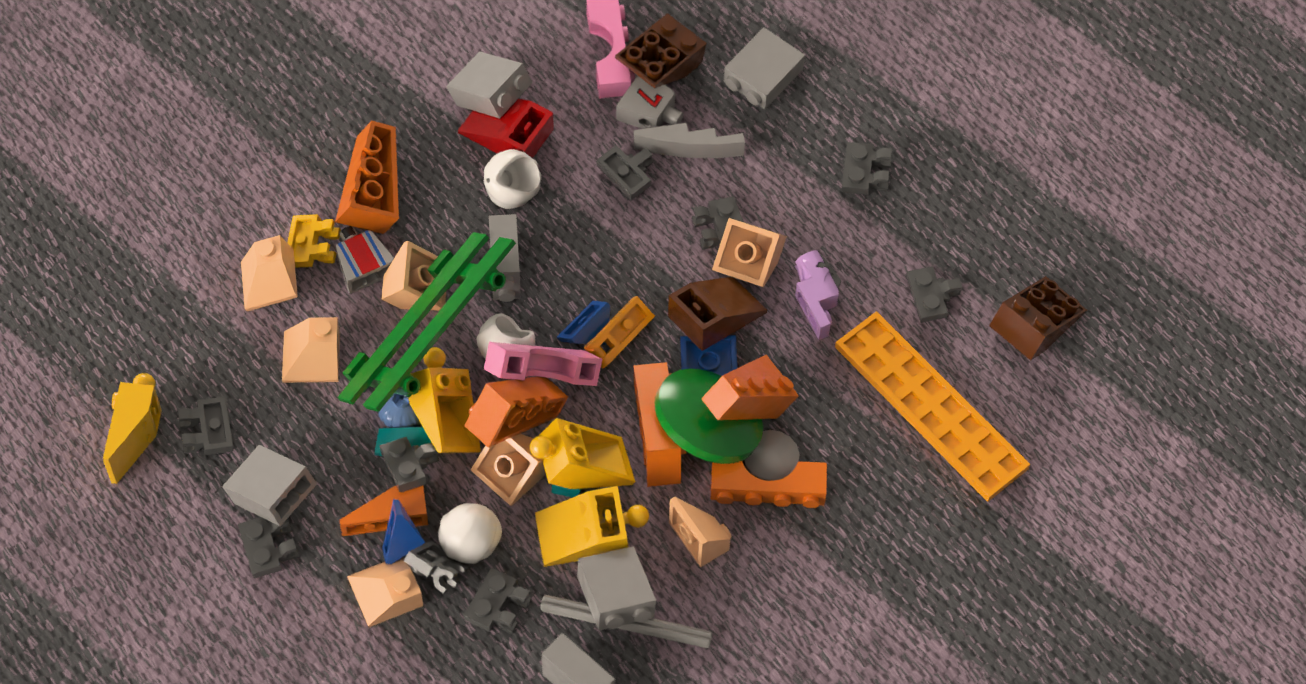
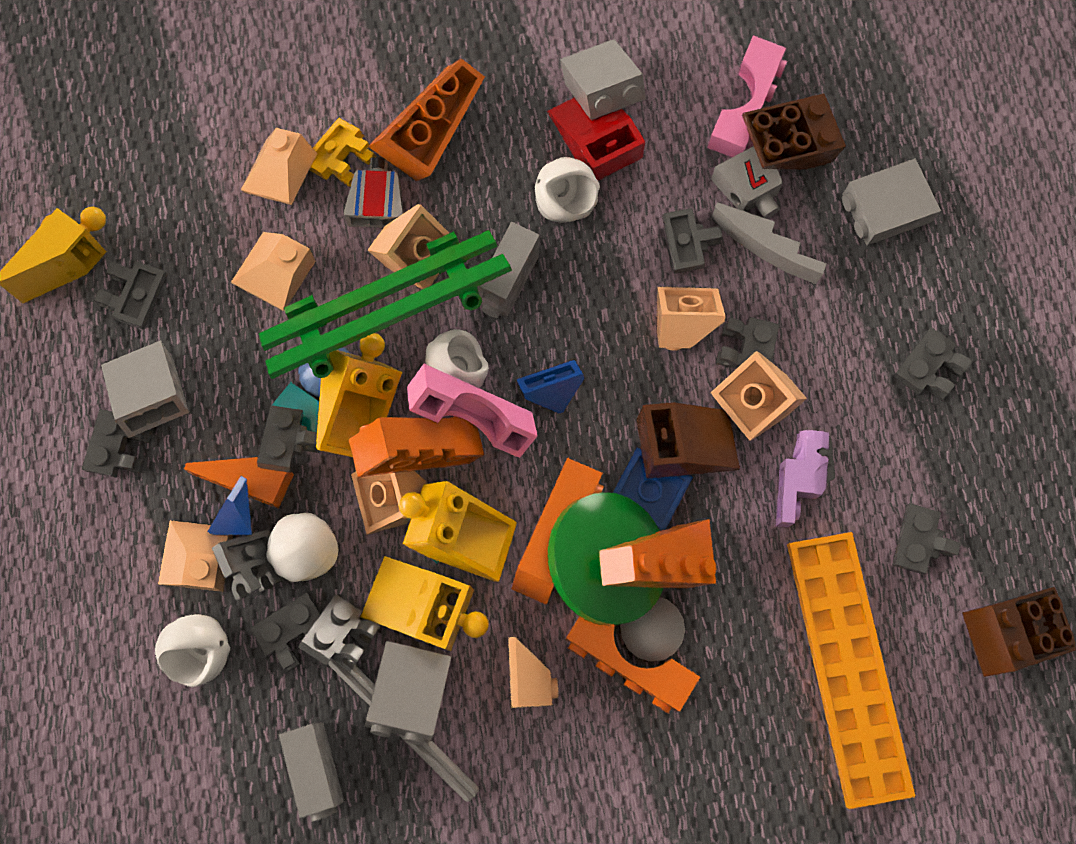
camera: 30 degrees right, 15 degrees up
(431, 647) = (192, 650): none -> white piece
(536, 579) = (330, 630): none -> dark grey plate
(620, 330) = (578, 410): light orange plate -> none
(660, 224) = (687, 315): none -> light nougat slope

